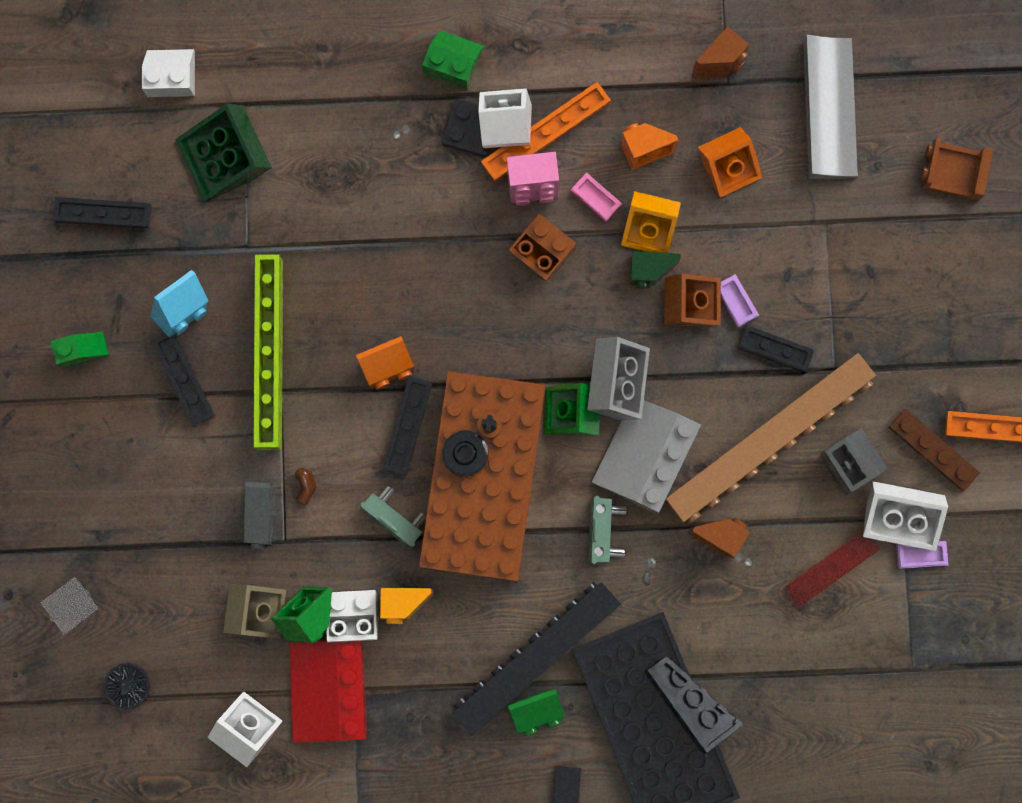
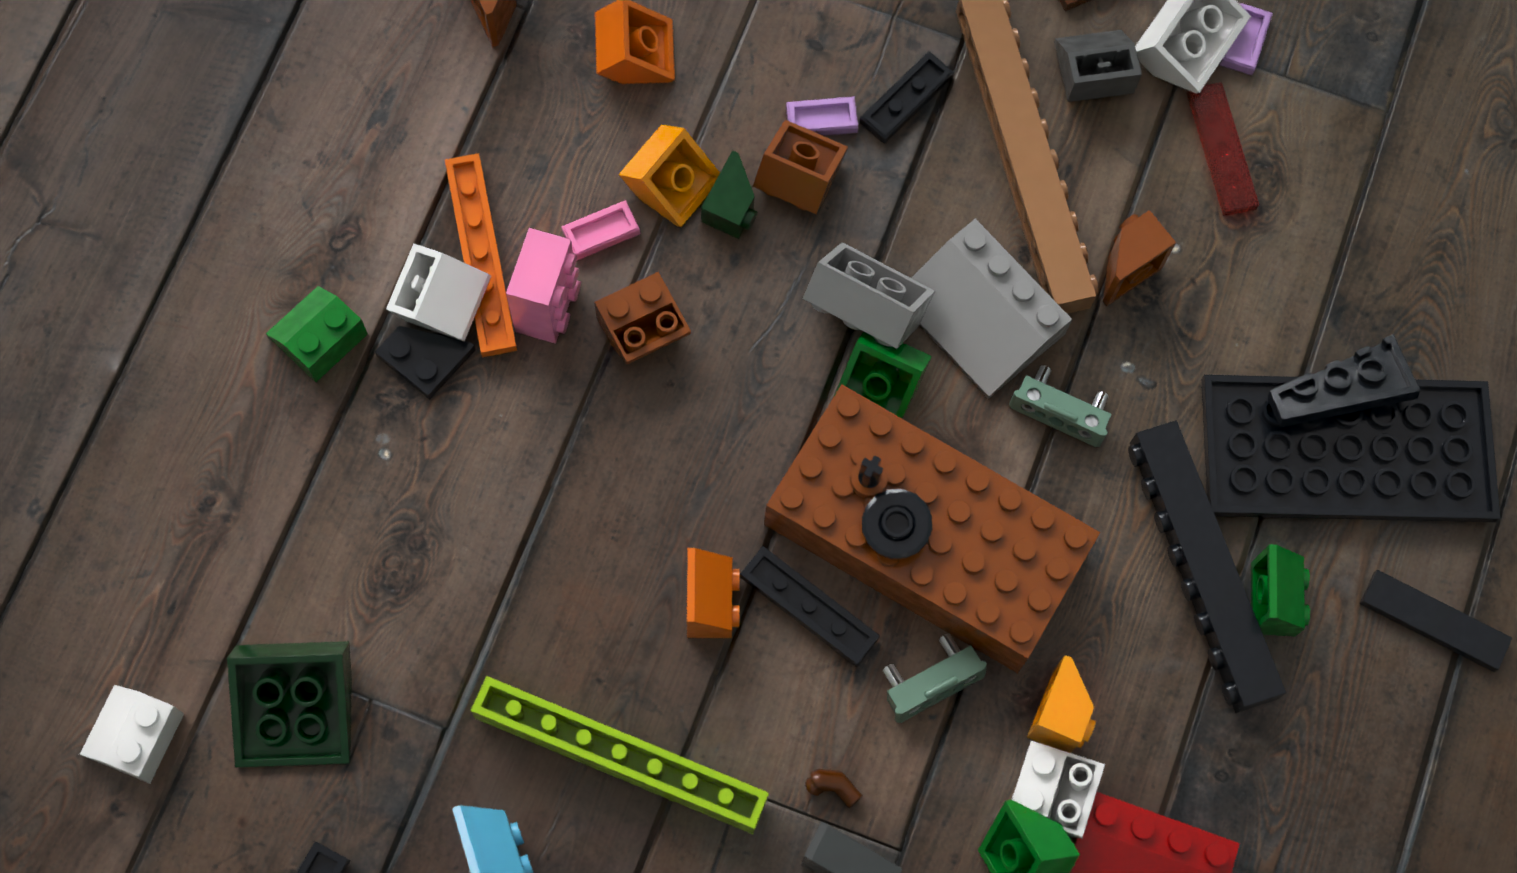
camera: 75 degrees left, 10 degrees down
(646, 144) = (562, 132): orange slope -> none

